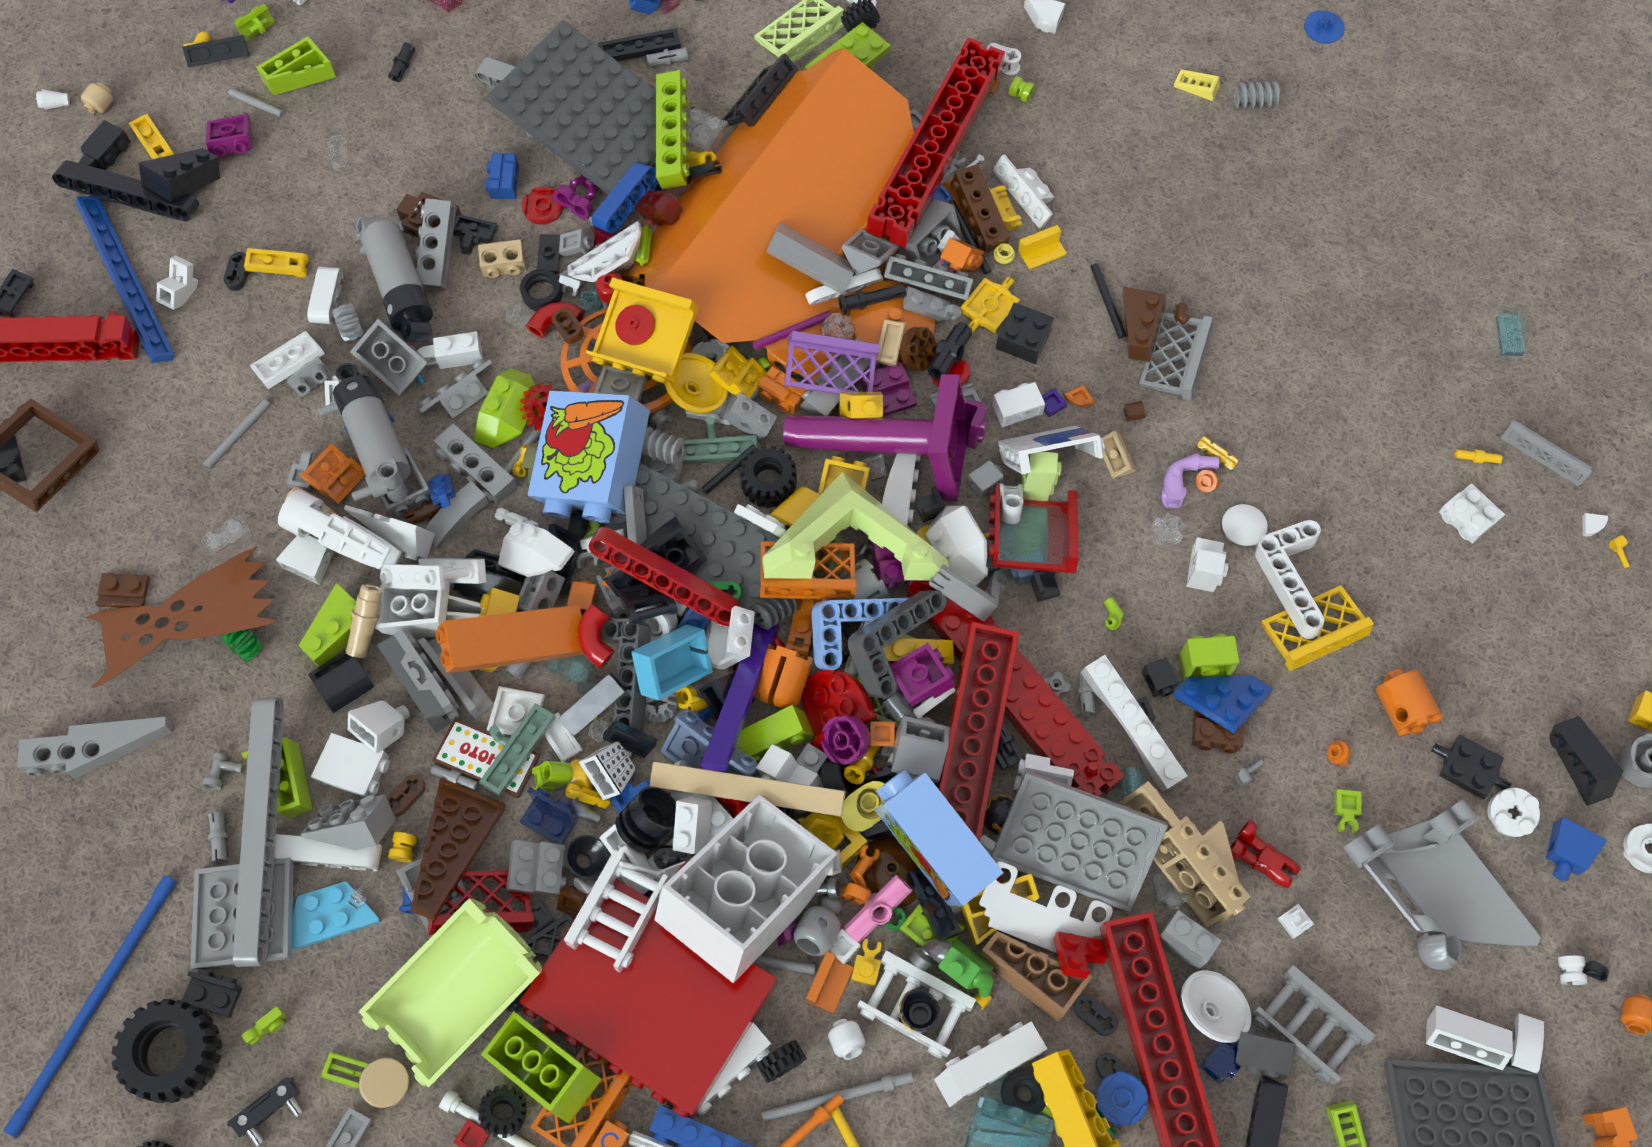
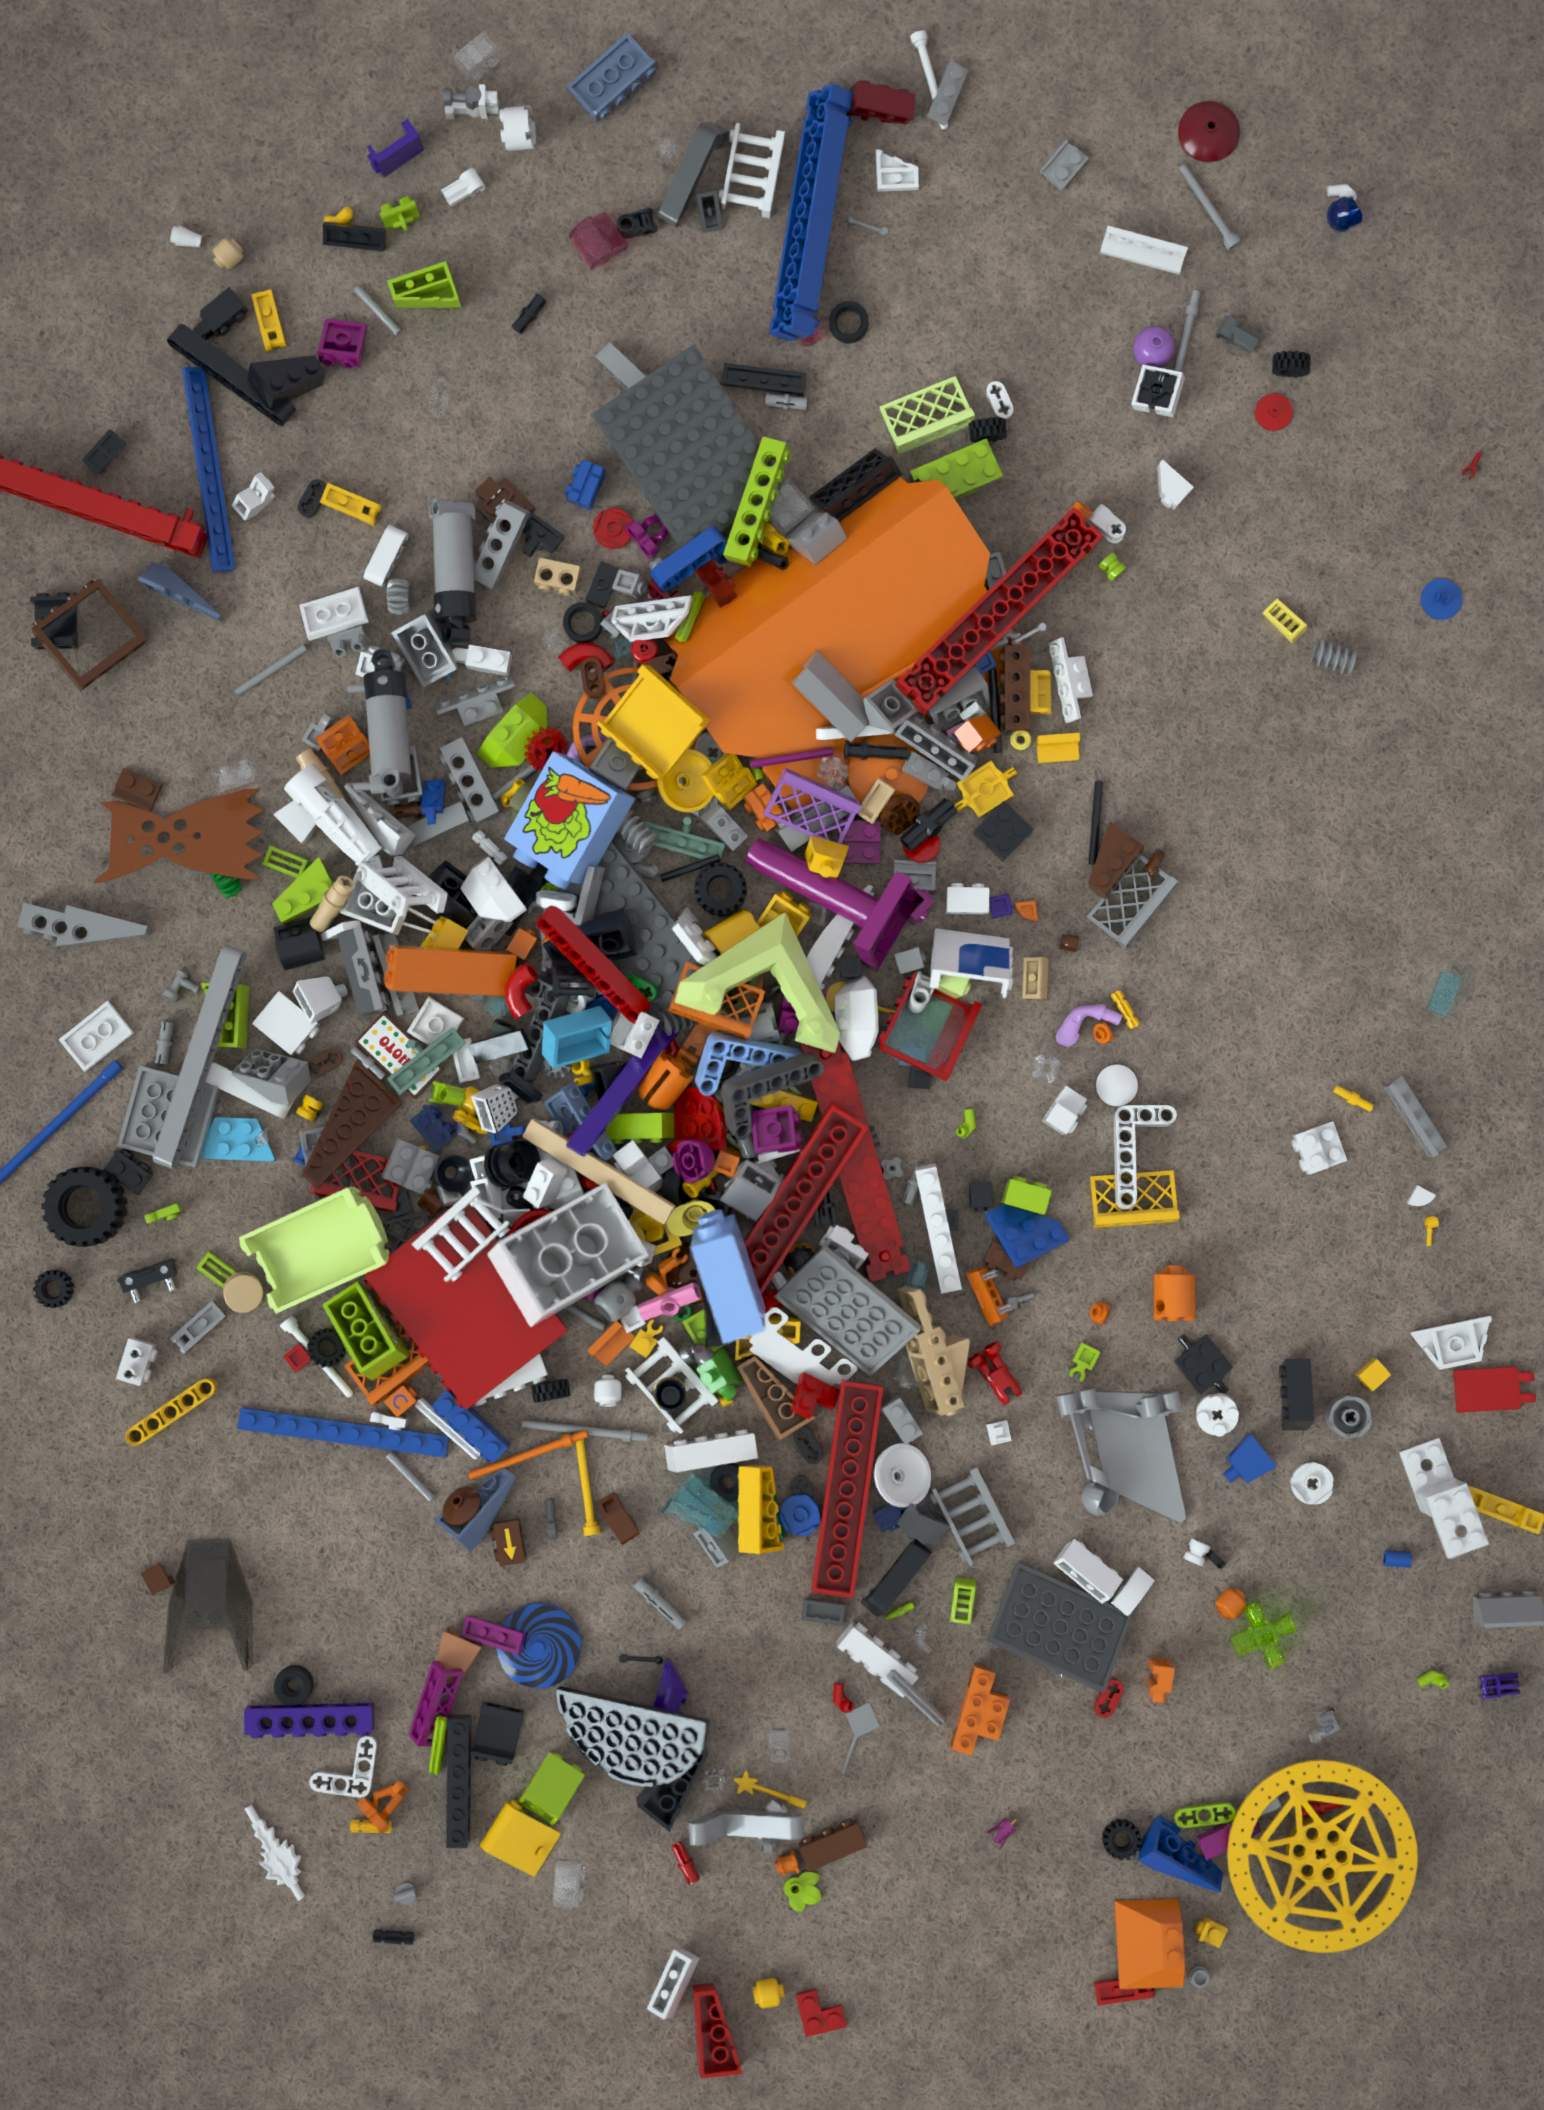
camera: 20 degrees right, 20 degrees up
(109, 388) = (167, 583): none -> sand blue wedge
(137, 858) = (96, 1036): none -> white tile
(302, 616) = (268, 856): none -> lime tile
(374, 655) = (331, 933): none -> white tile
(635, 325) = (649, 712): red piece -> none
(740, 133) = (816, 536): none -> light grey slope
(967, 594) = (843, 1075): light grey hinge -> none
(1216, 777) = (987, 1295): none -> orange piece

